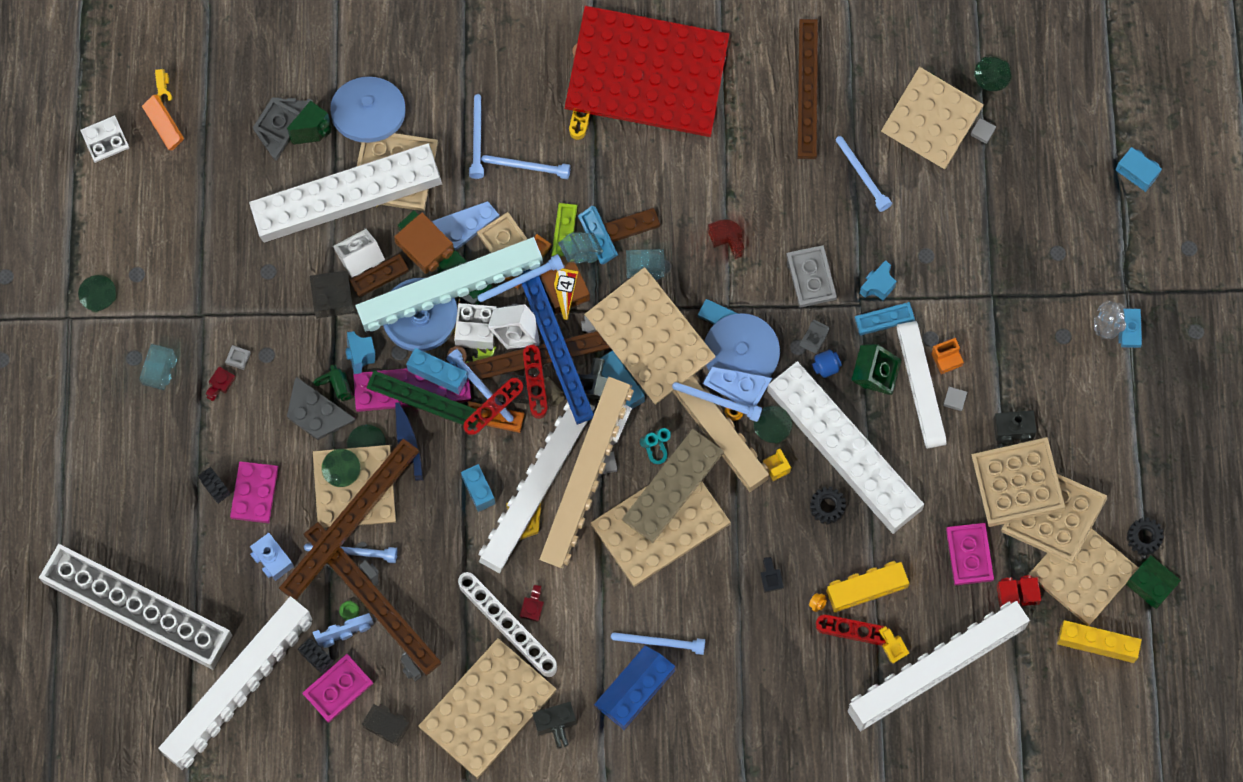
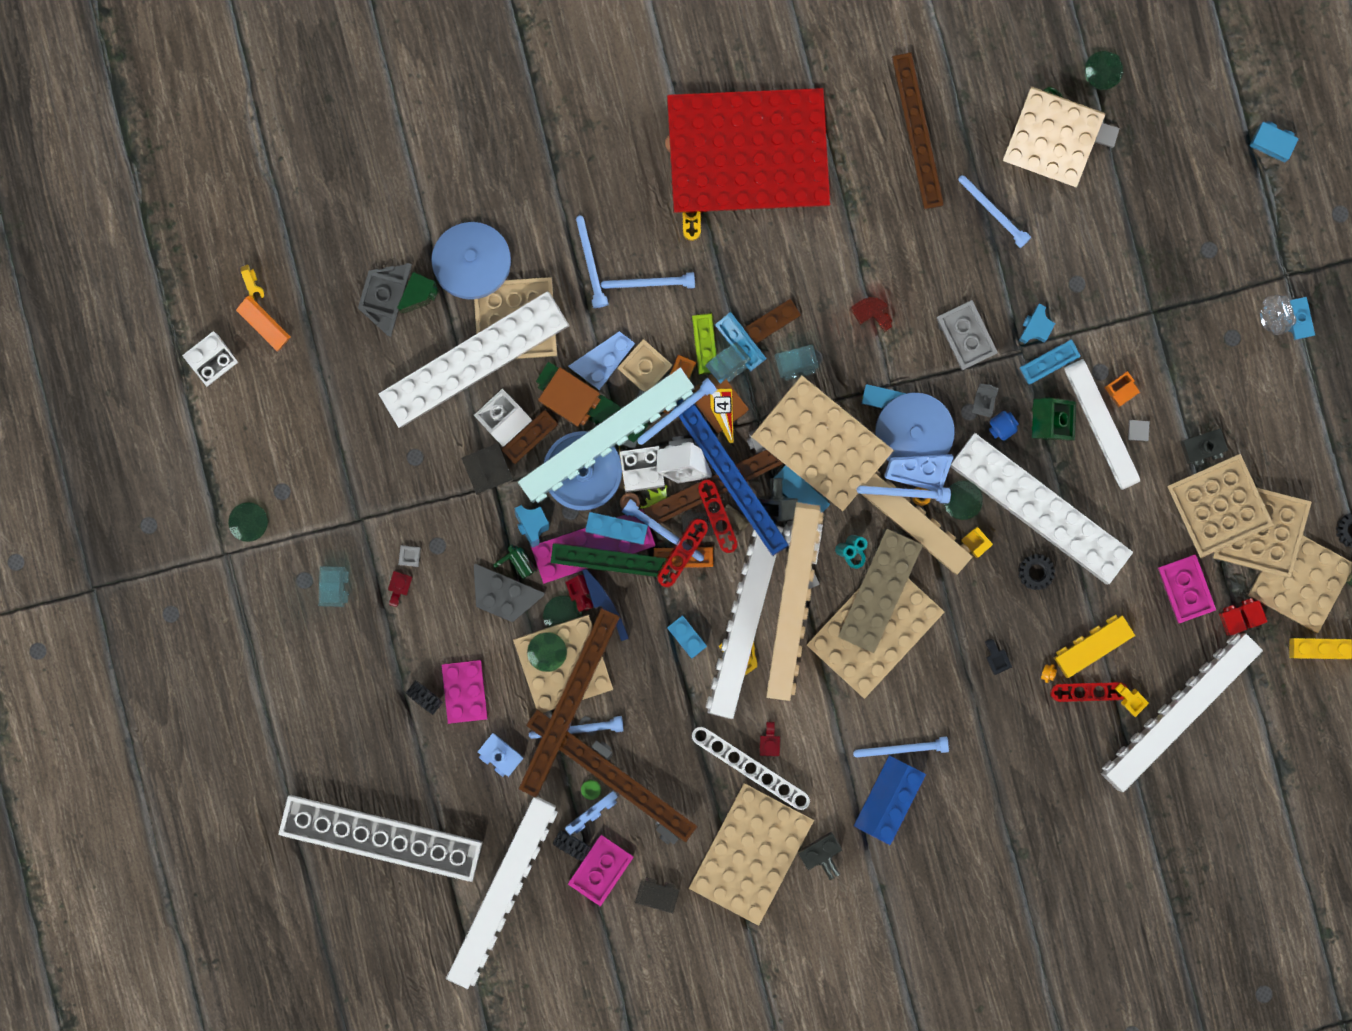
camera: 20 degrees left, 15 degrees up
(386, 422) = (578, 590): none -> dark red plate

